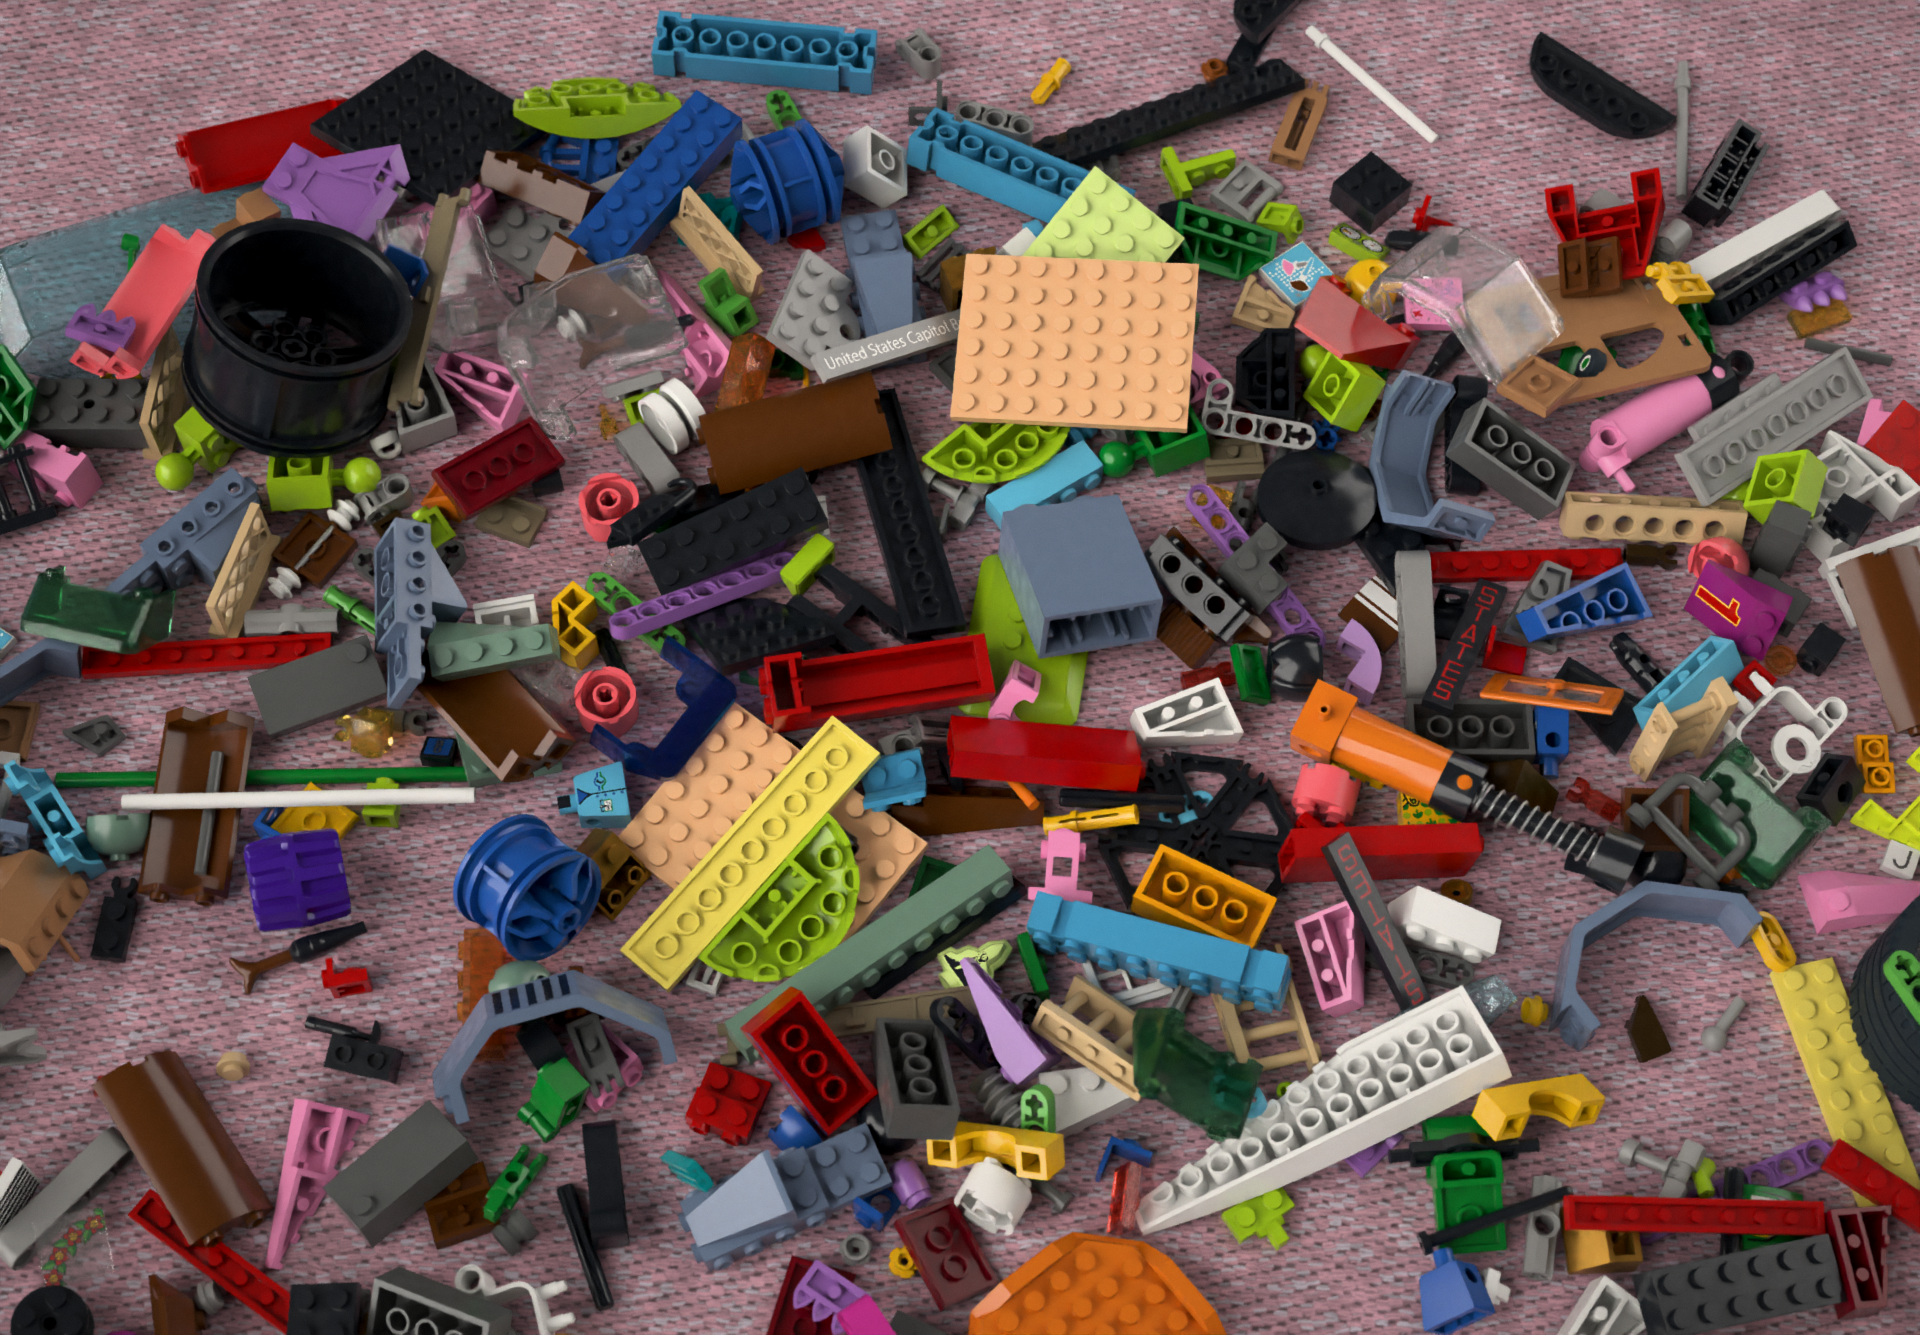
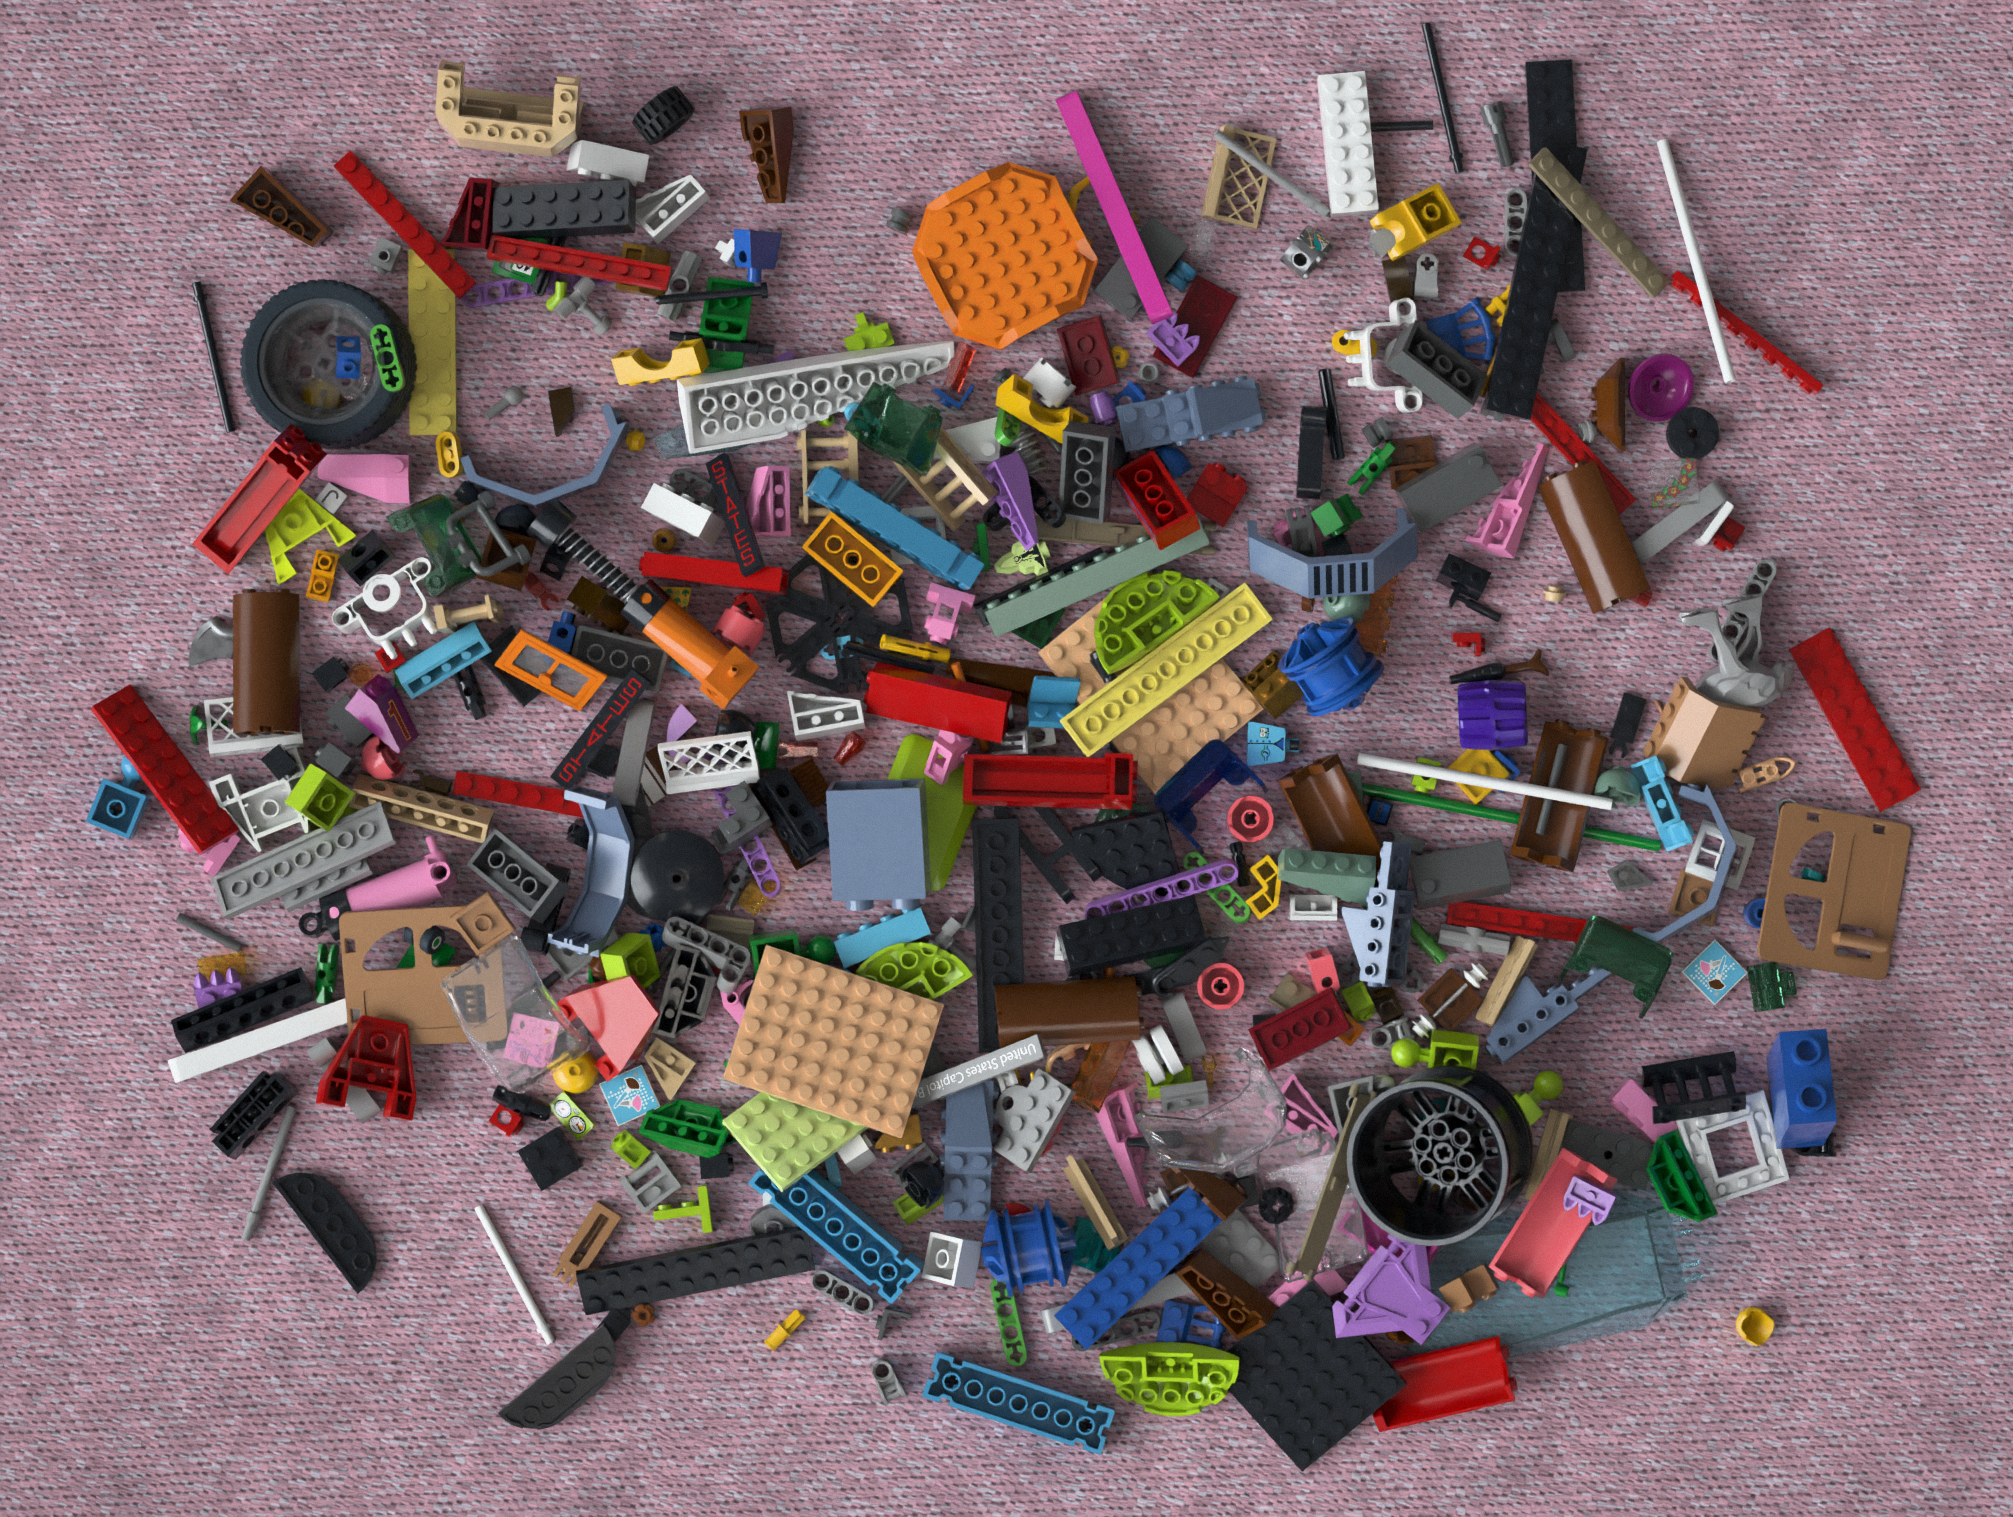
camera: 170 degrees left, 25 degrees up
(369, 731) = (1427, 831): clear yellow brick -> none
(409, 266) = (1344, 1215): blue bracket -> none
(476, 536) = (1321, 966): none -> coral torso
(508, 290) = (1269, 1199): none -> black gear
(684, 1168) = (1253, 445): teal tile -> none
(725, 306) = (1095, 1154): bright green brick -> none
(800, 570) = (1079, 906): lime slope -> none
(926, 238) = (924, 1182): none -> black cylinder
(1143, 690) = (849, 748): none -> clear red cone
(1316, 619) = (711, 774): none -> white fence
(1503, 656) = (570, 721): red bracket -> none
(1546, 583) = (532, 750): dark grey wing -> none
(1590, 268) = (401, 1033): reddish brown slope -> none
(1594, 605) = (501, 738): blue wedge -> none
(1679, 284) = (331, 998): yellow plate -> none

